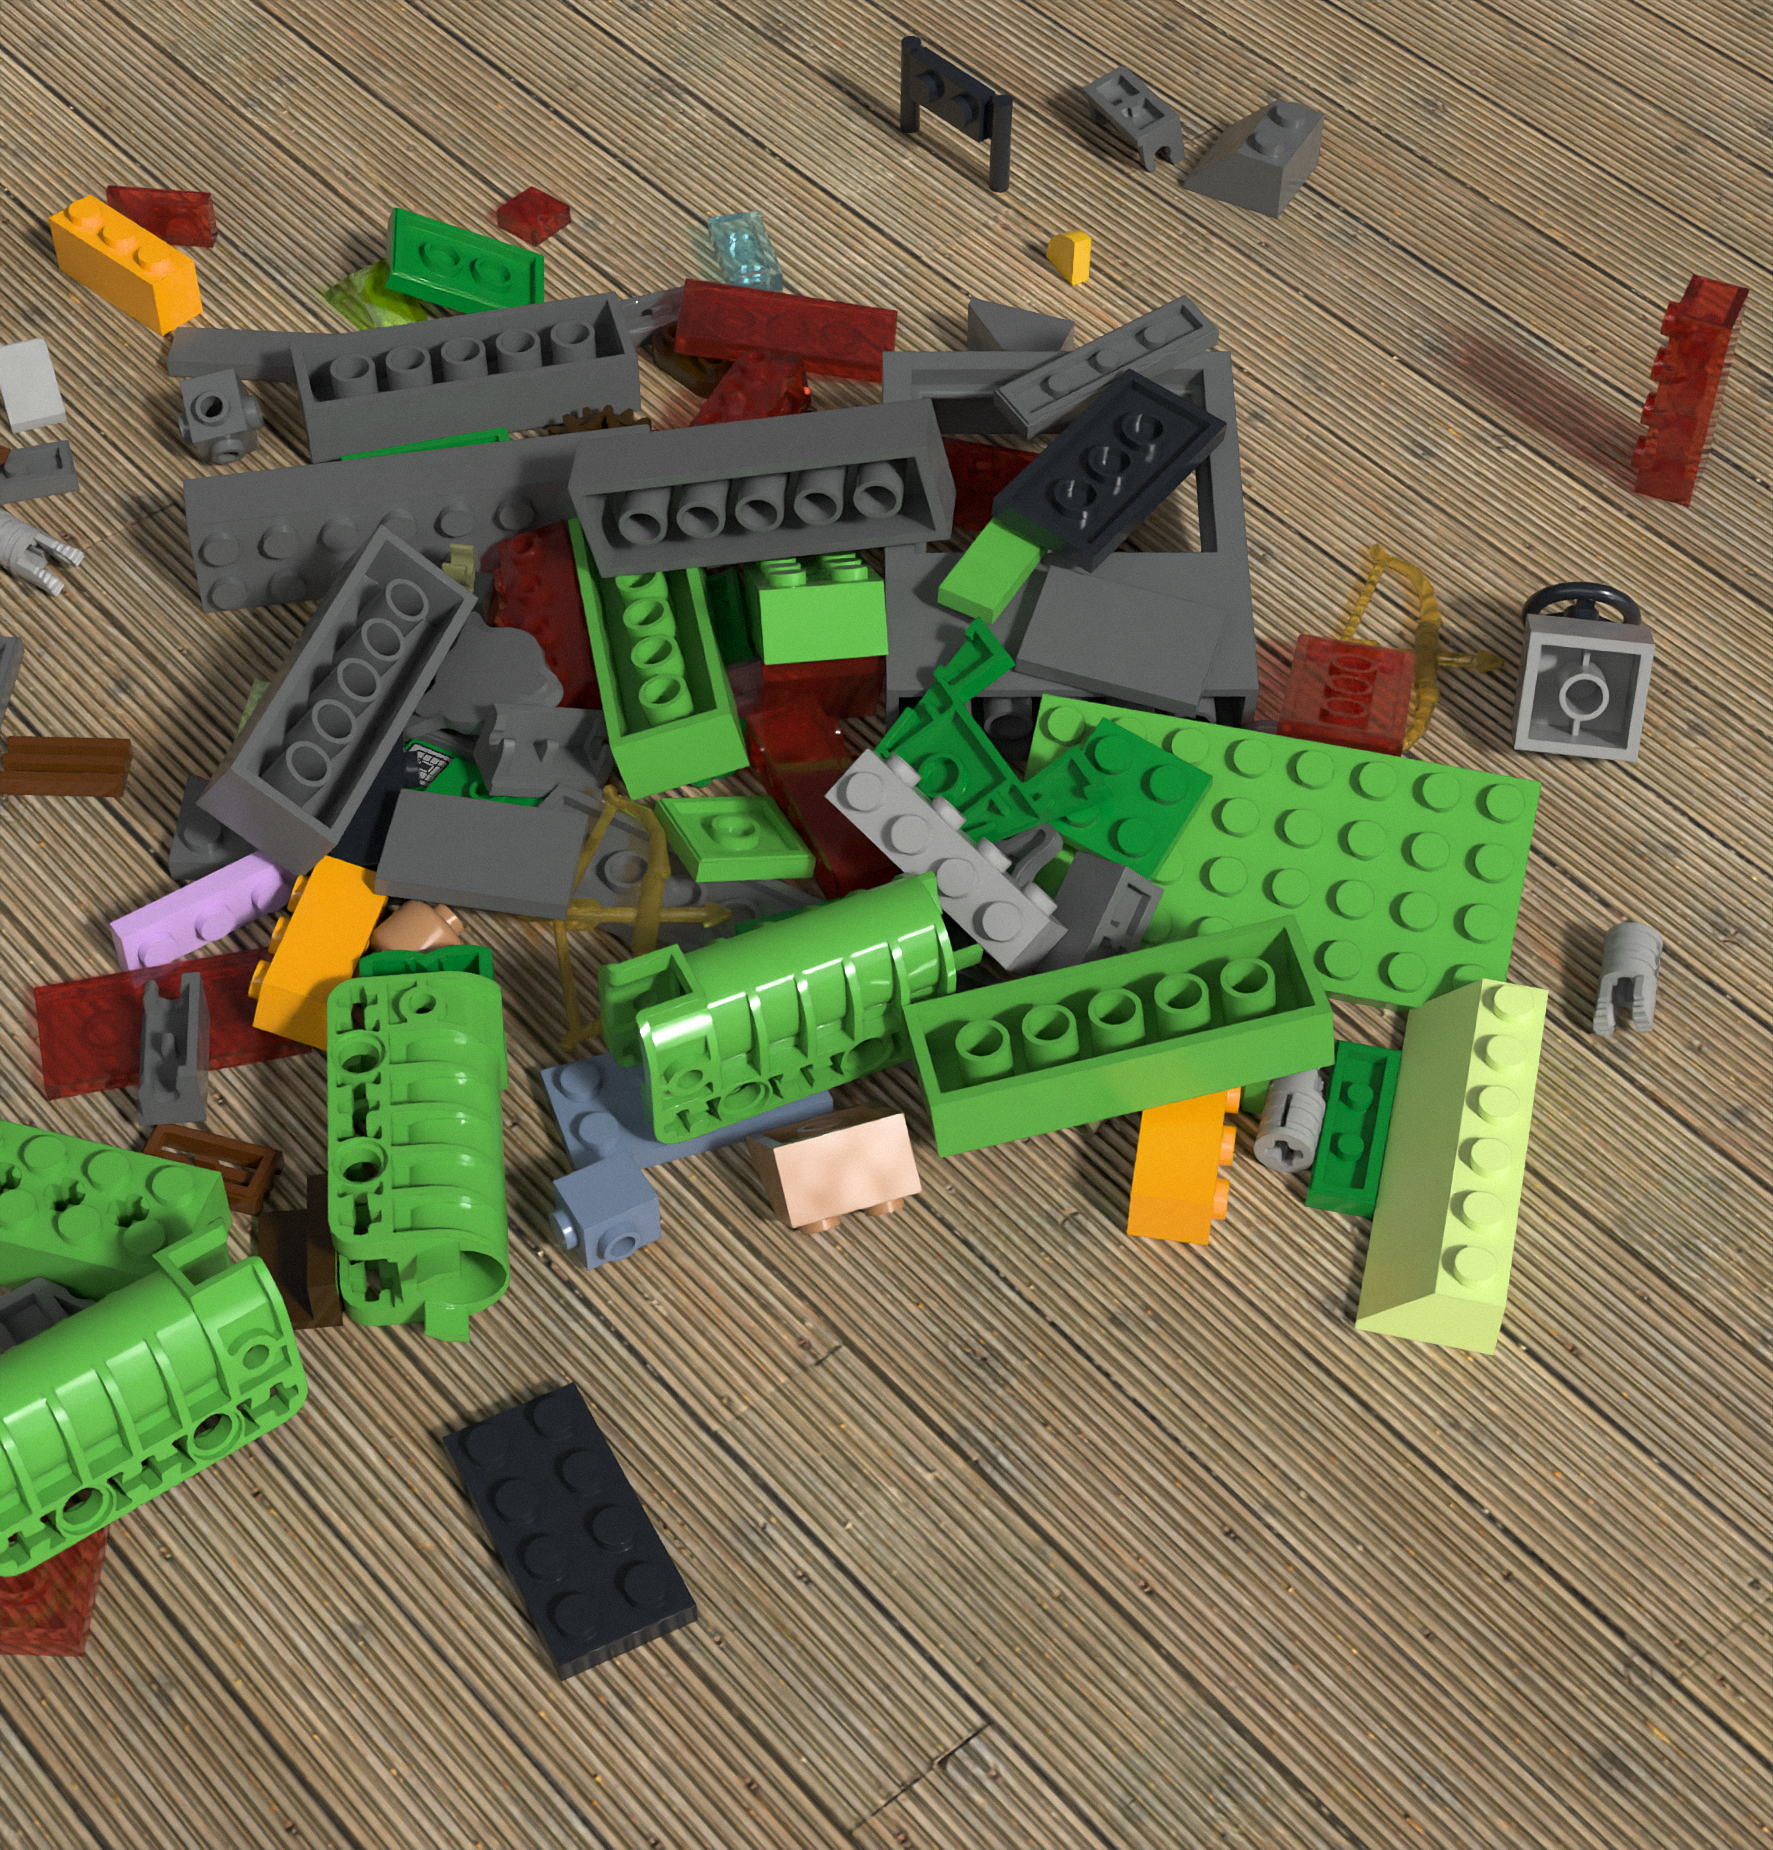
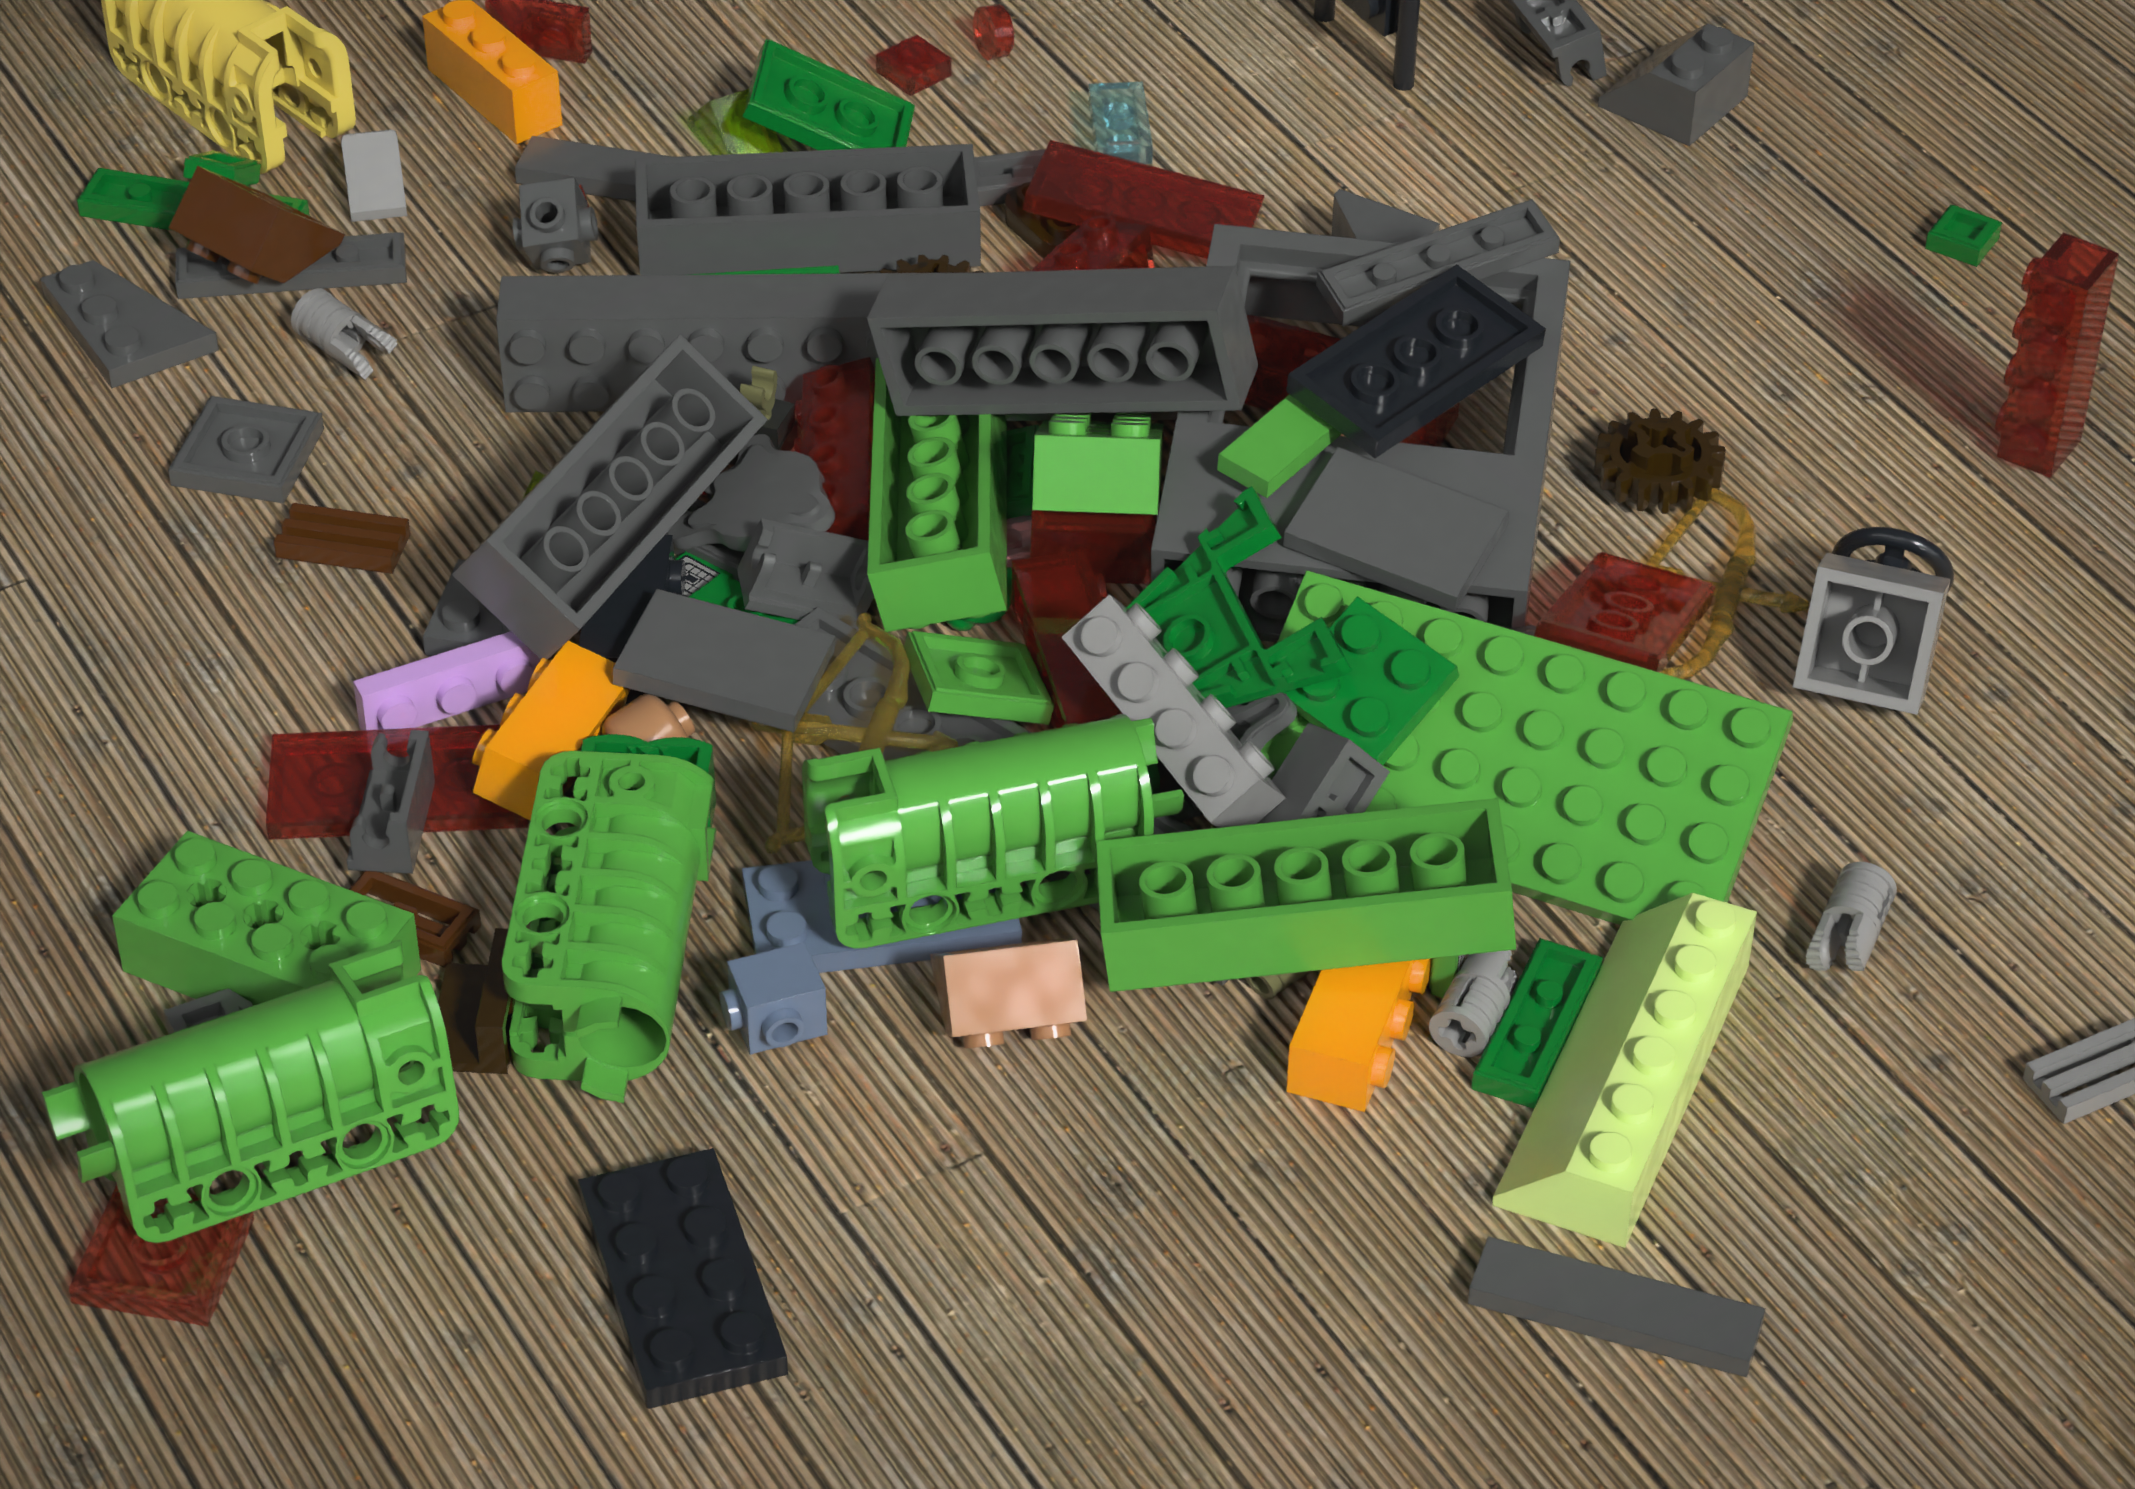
camera: 10 degrees right, 5 degrees down
(604, 175) = (993, 31): none -> clear red tile
(1071, 255) = (1458, 160): yellow tile -> none
(1332, 534) = (1663, 460): none -> dark brown gear
(1504, 1422) = (1617, 1306): none -> dark grey tile
(1550, 278) = (1963, 235): none -> green tile

